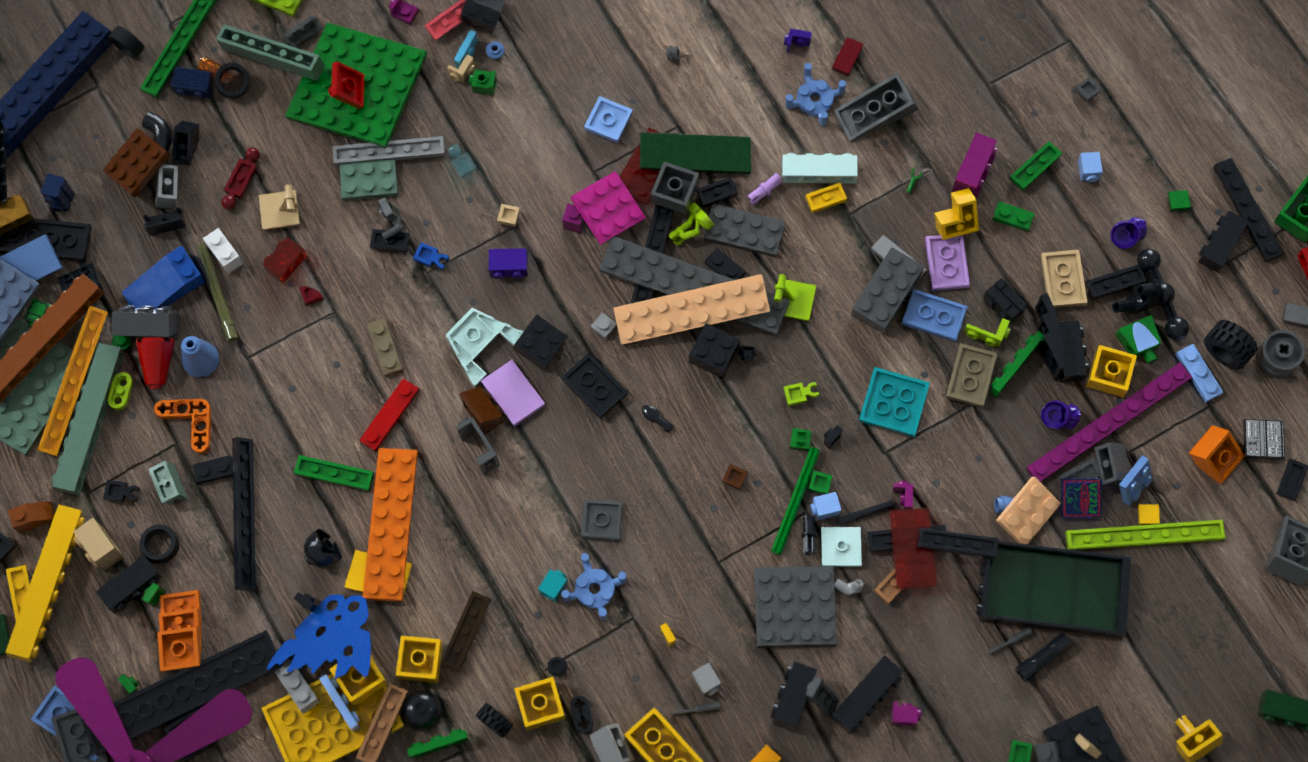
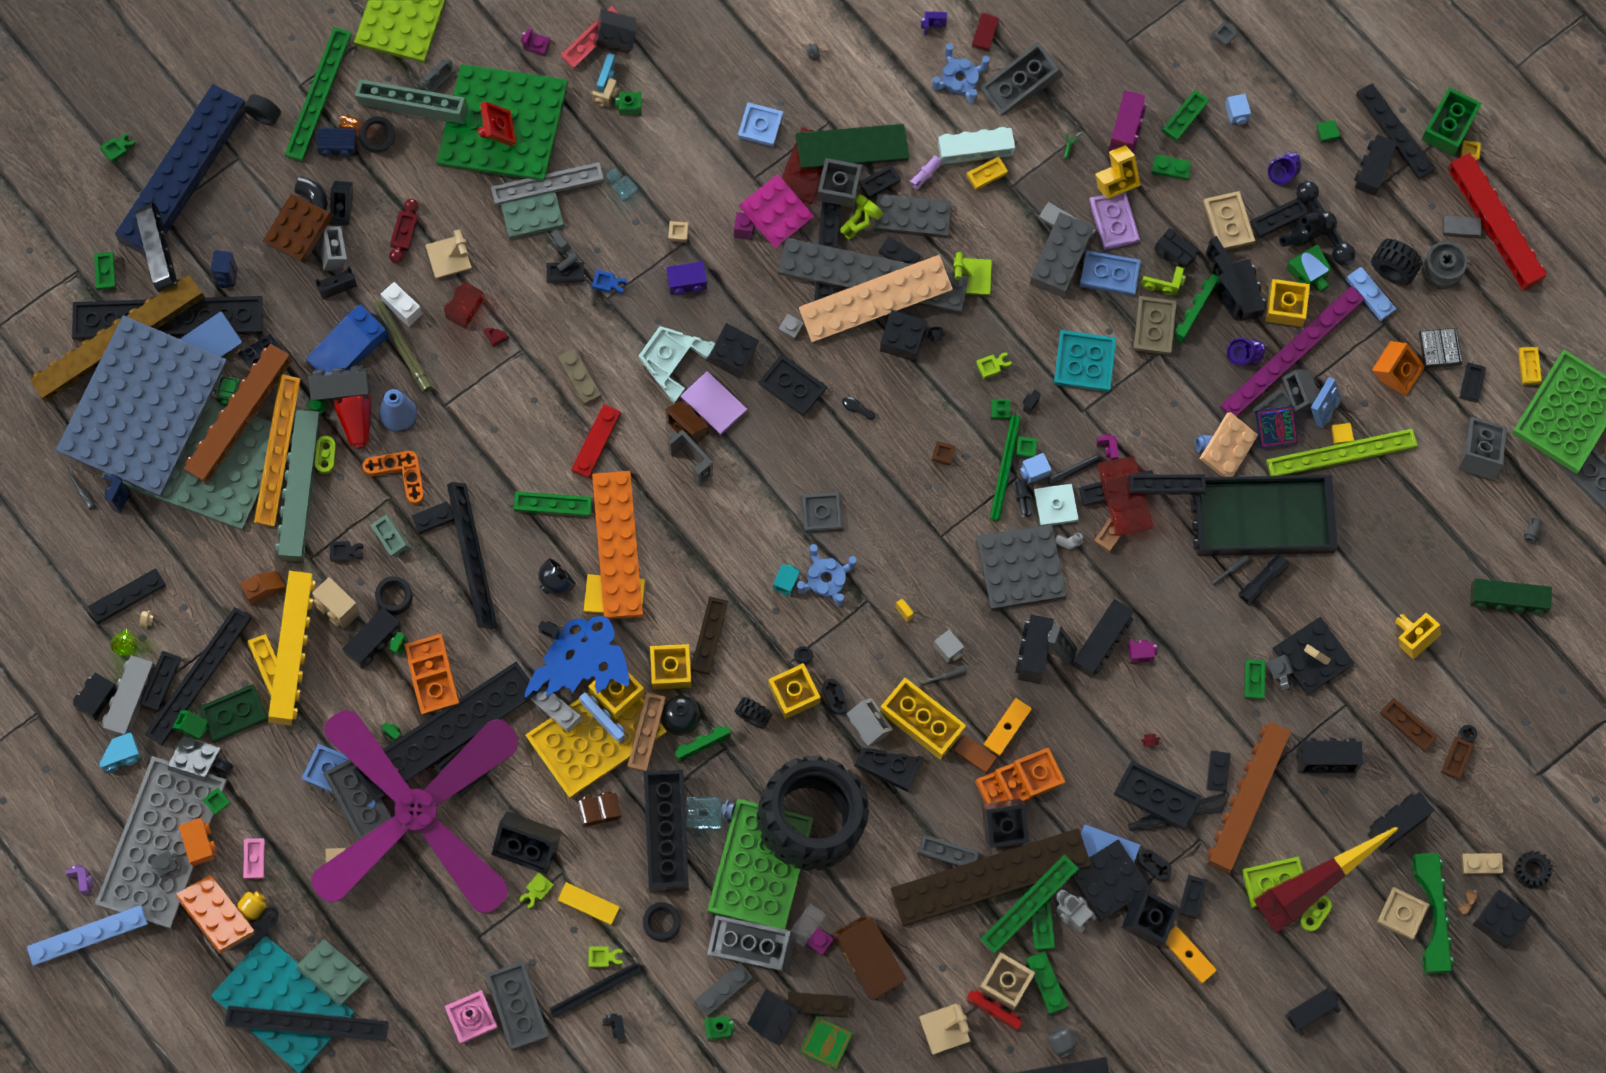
camera: 15 degrees left, 0 degrees up
(495, 54) = (637, 74): medium blue plate -> none

